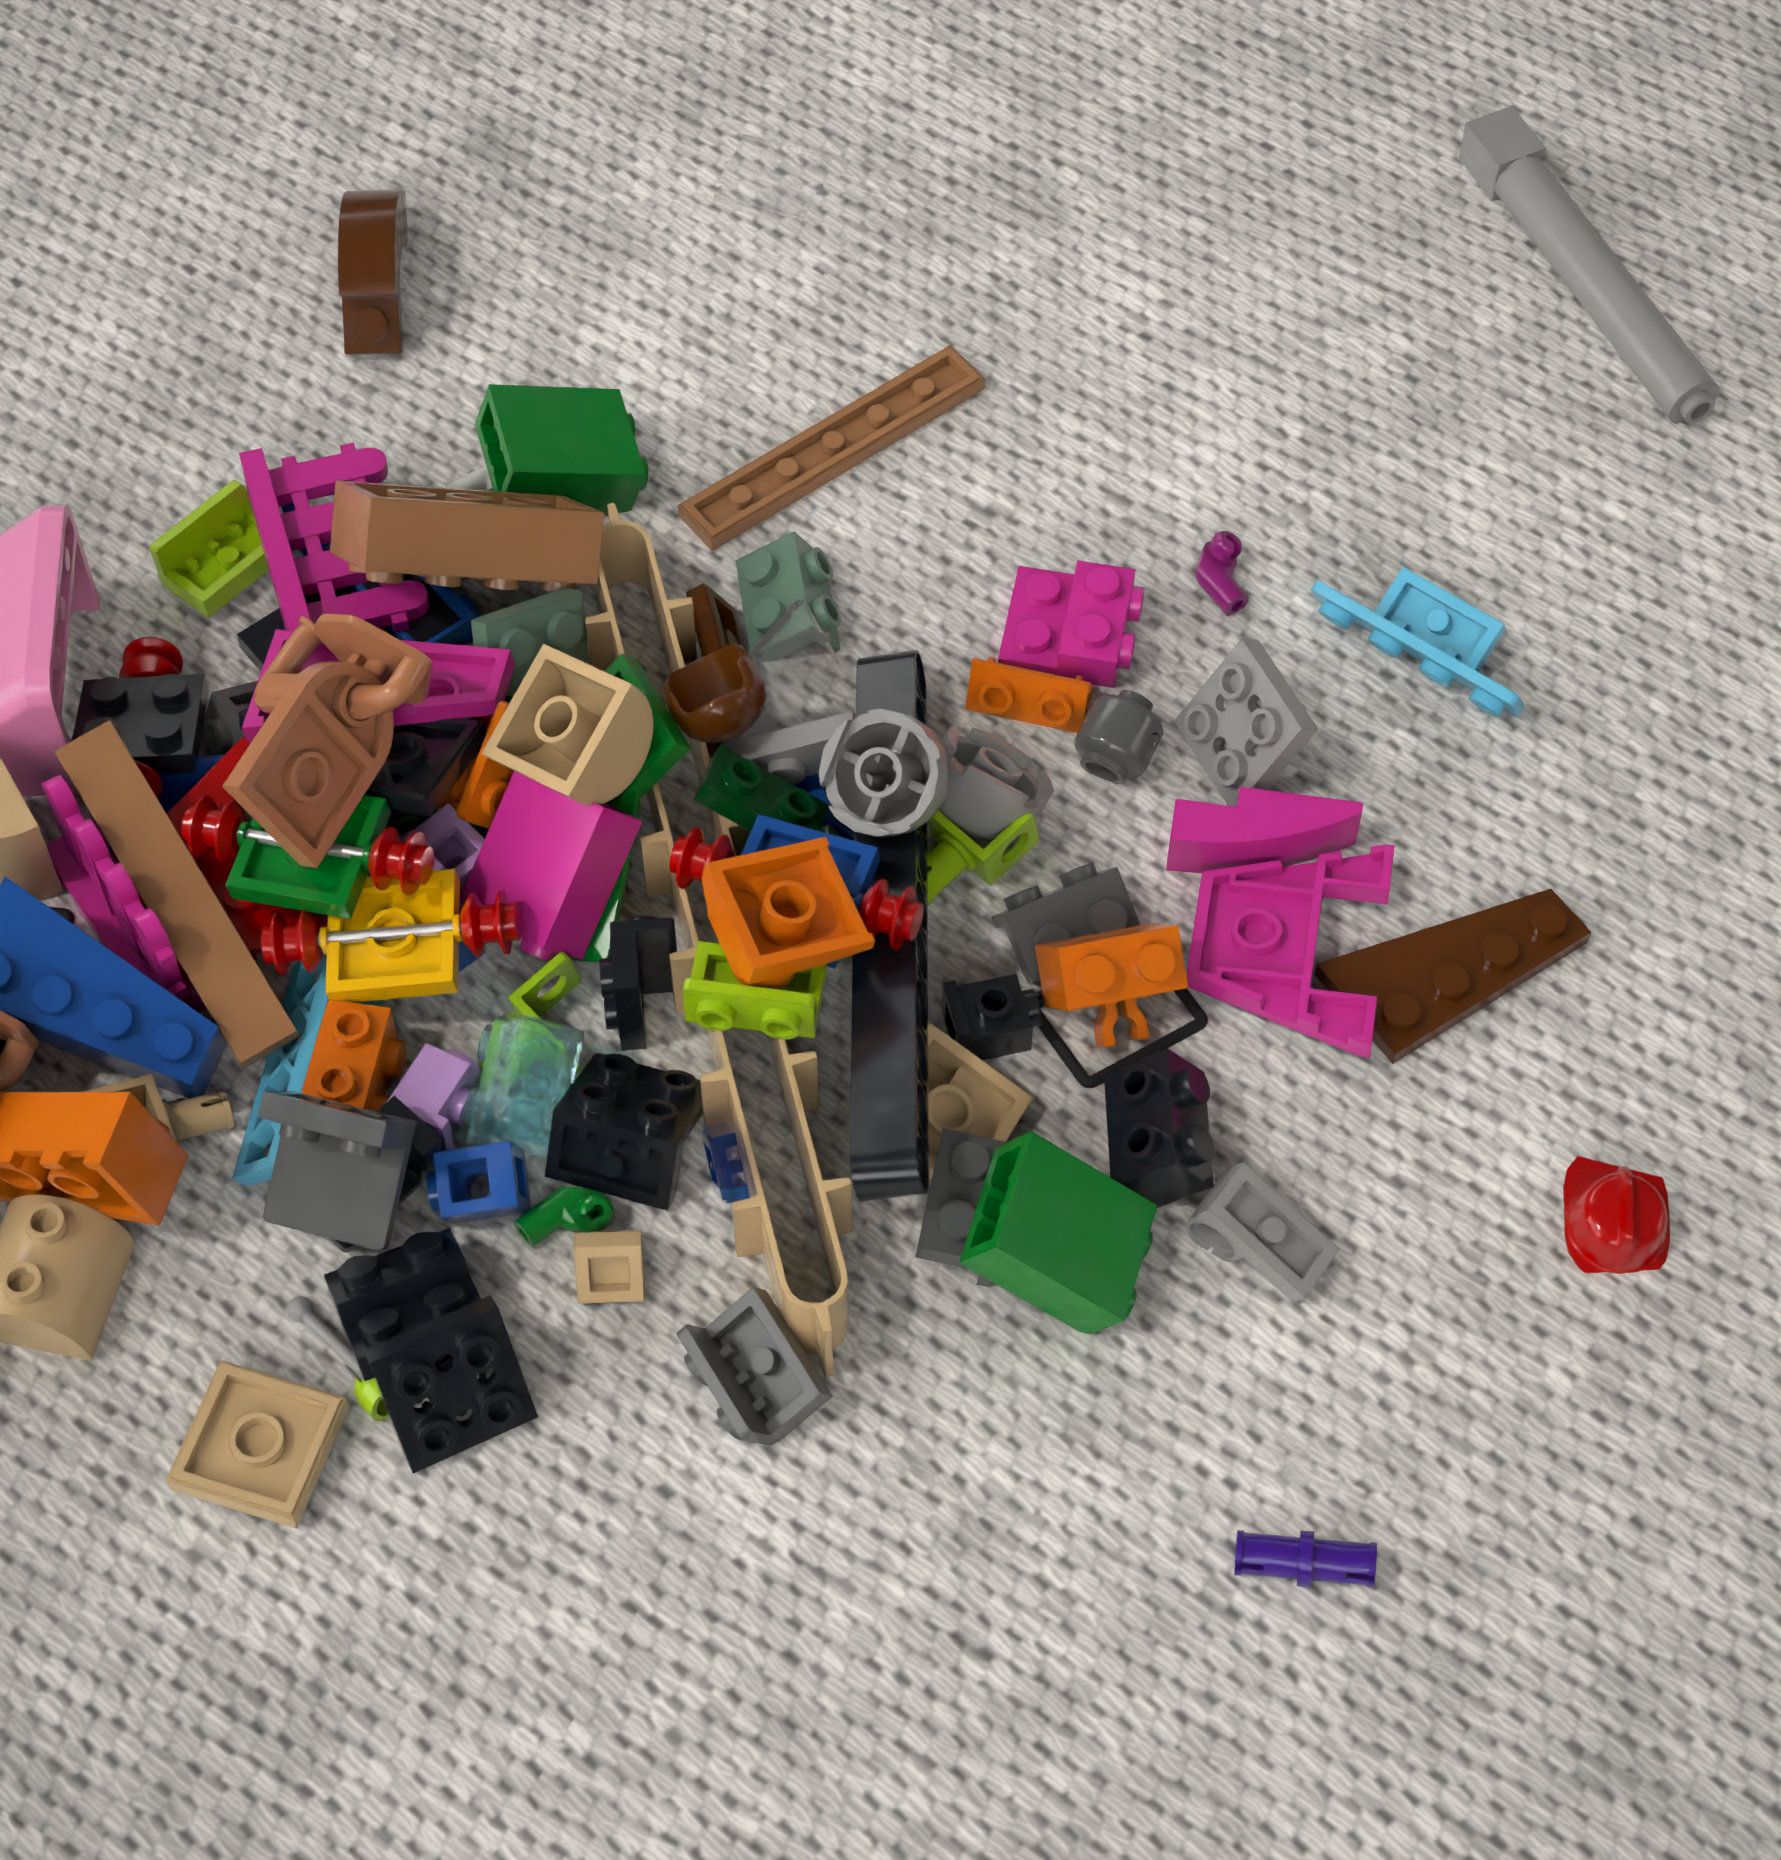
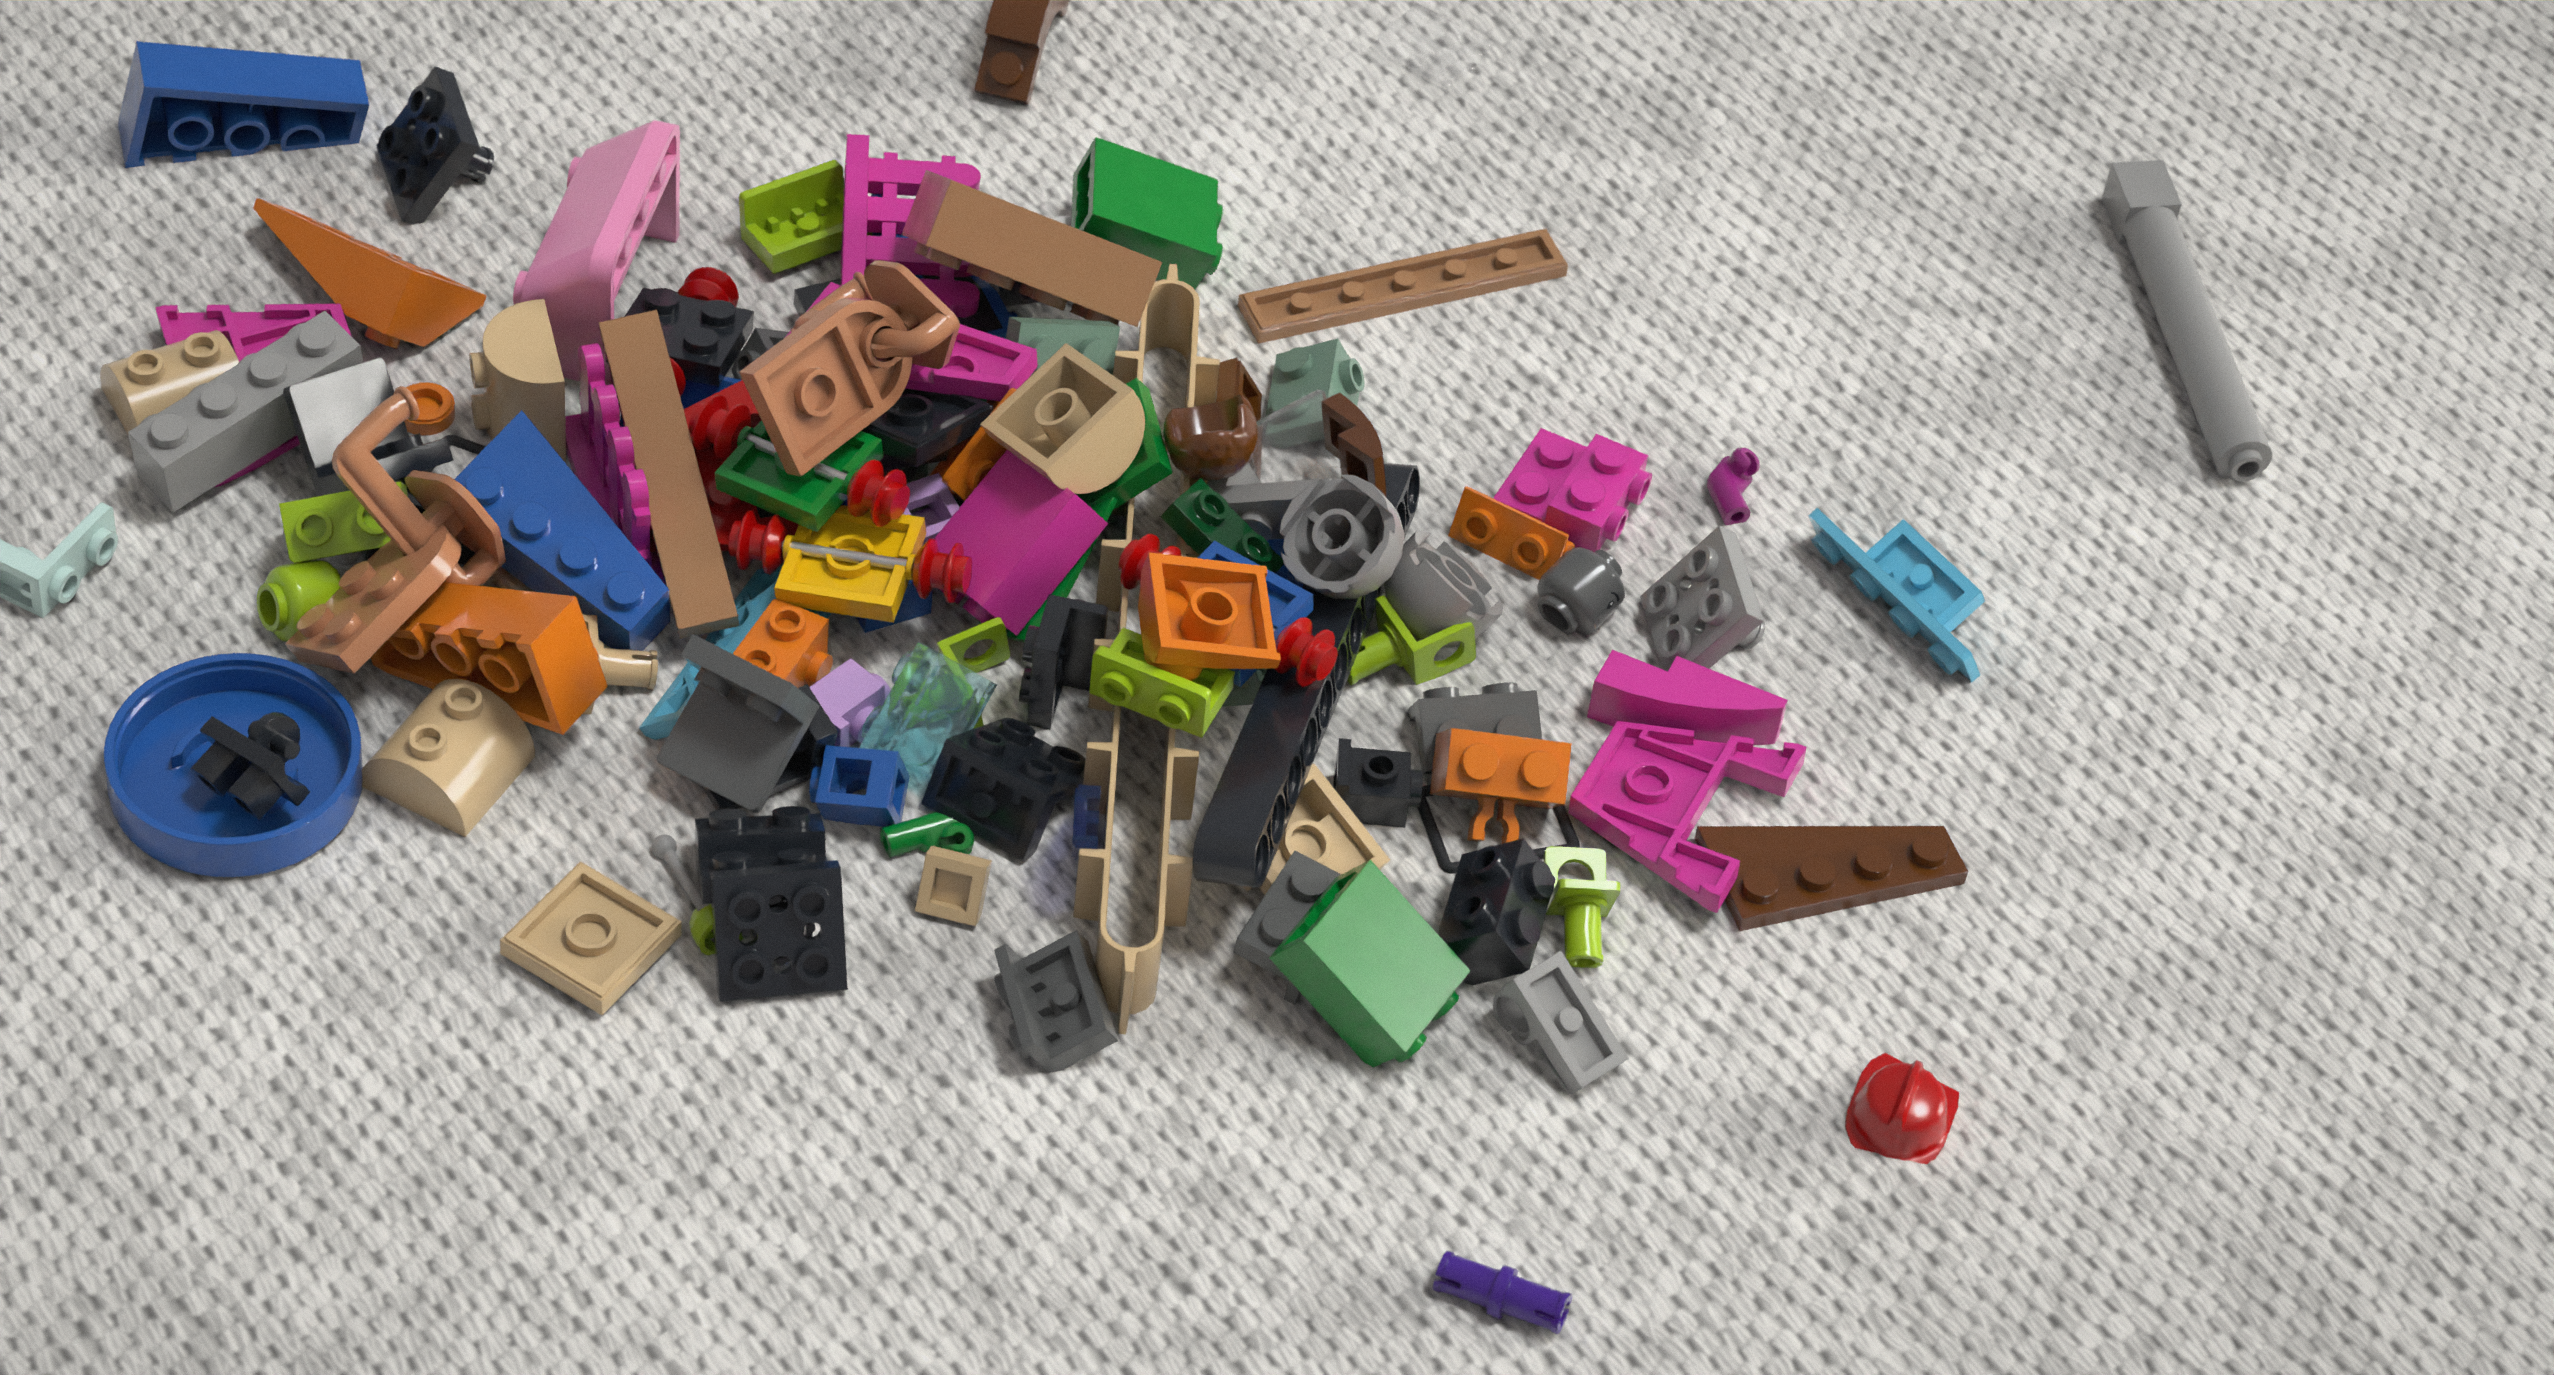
camera: 10 degrees right, 10 degrees down
(859, 652) = (1353, 440): none -> reddish brown slope
(1236, 1090) = (1581, 902): none -> lime bracket

